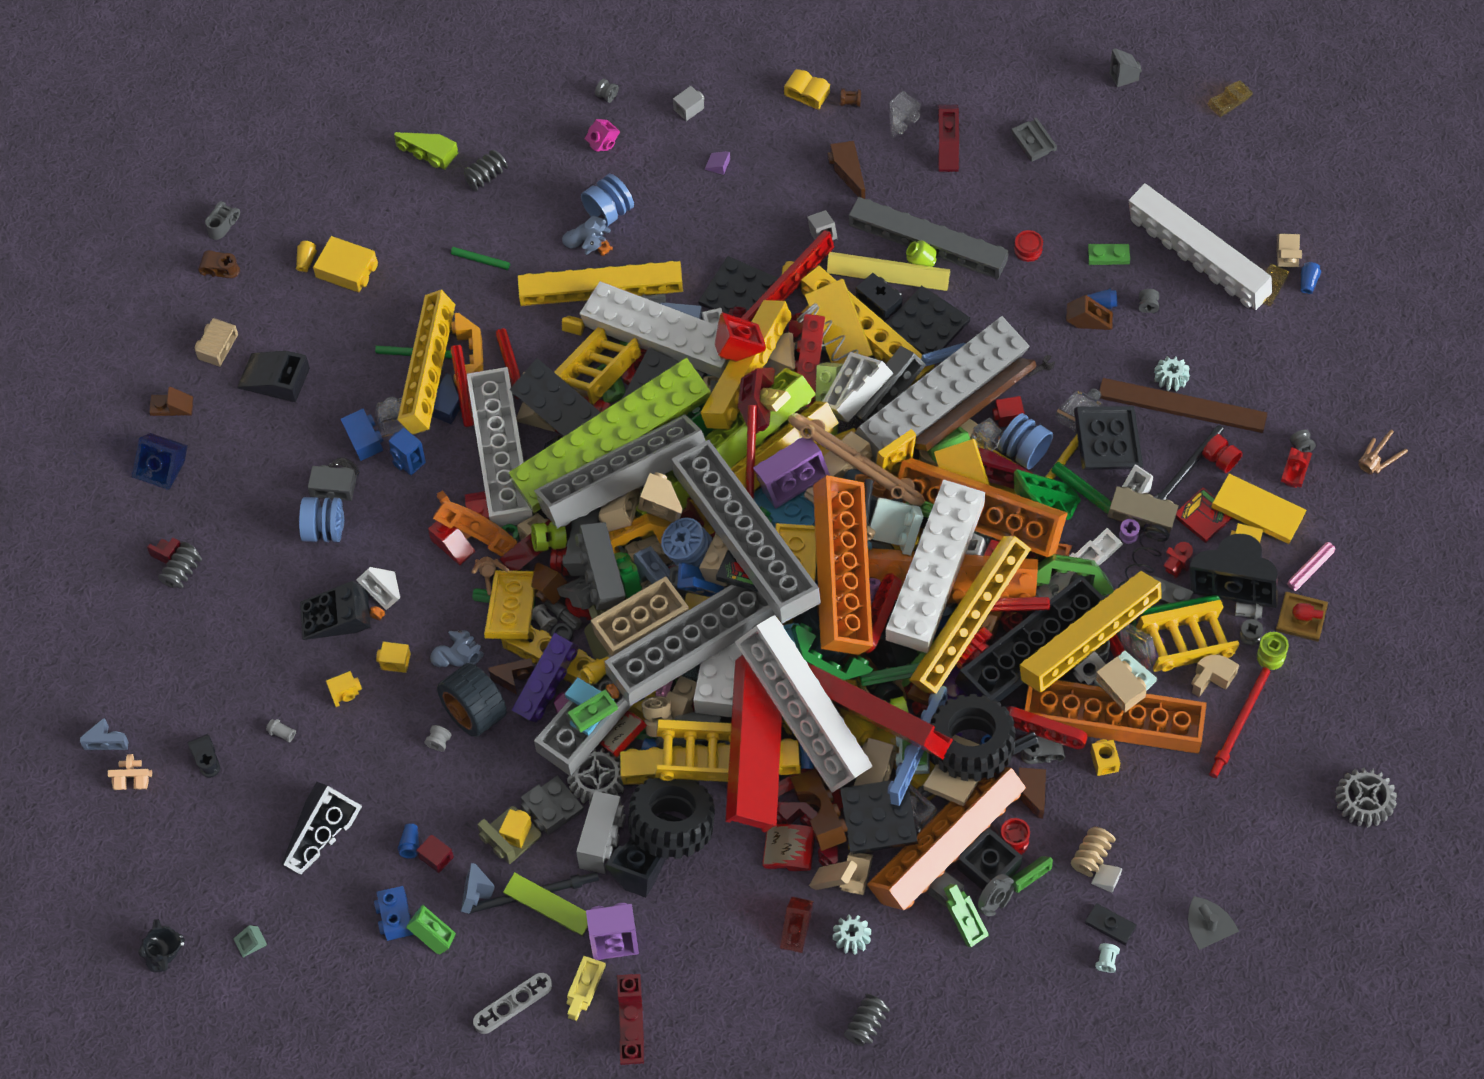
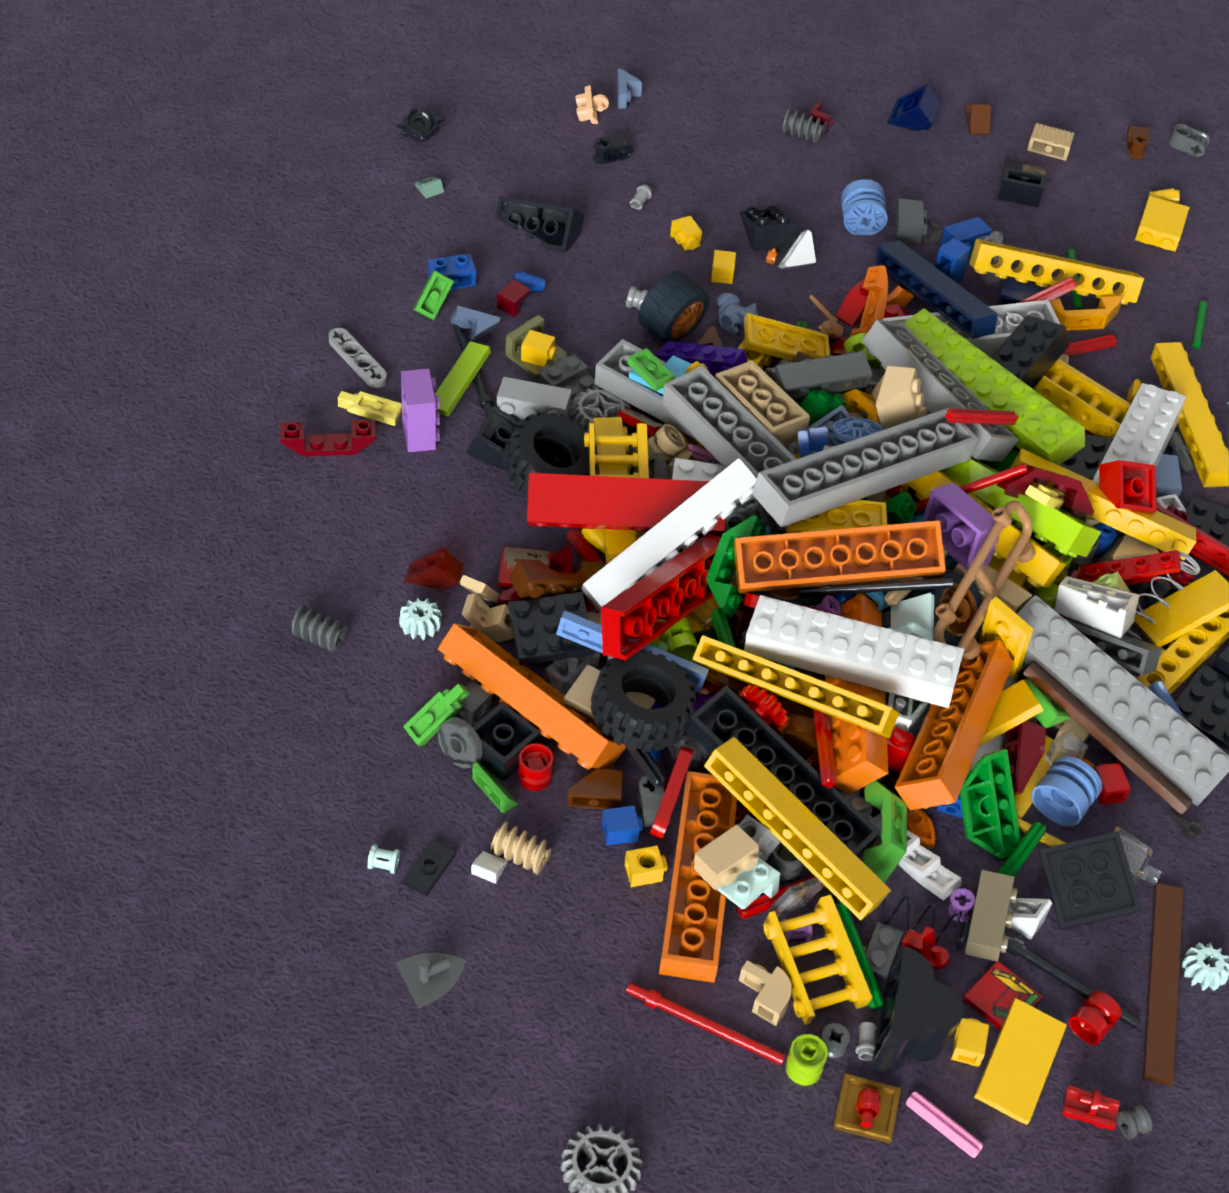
camera: 80 degrees right, 10 degrees down
(450, 467) = (937, 289): none -> dark blue brick
(681, 434) = (973, 416): none -> red axle
(1066, 773) = (621, 825): none -> blue brick

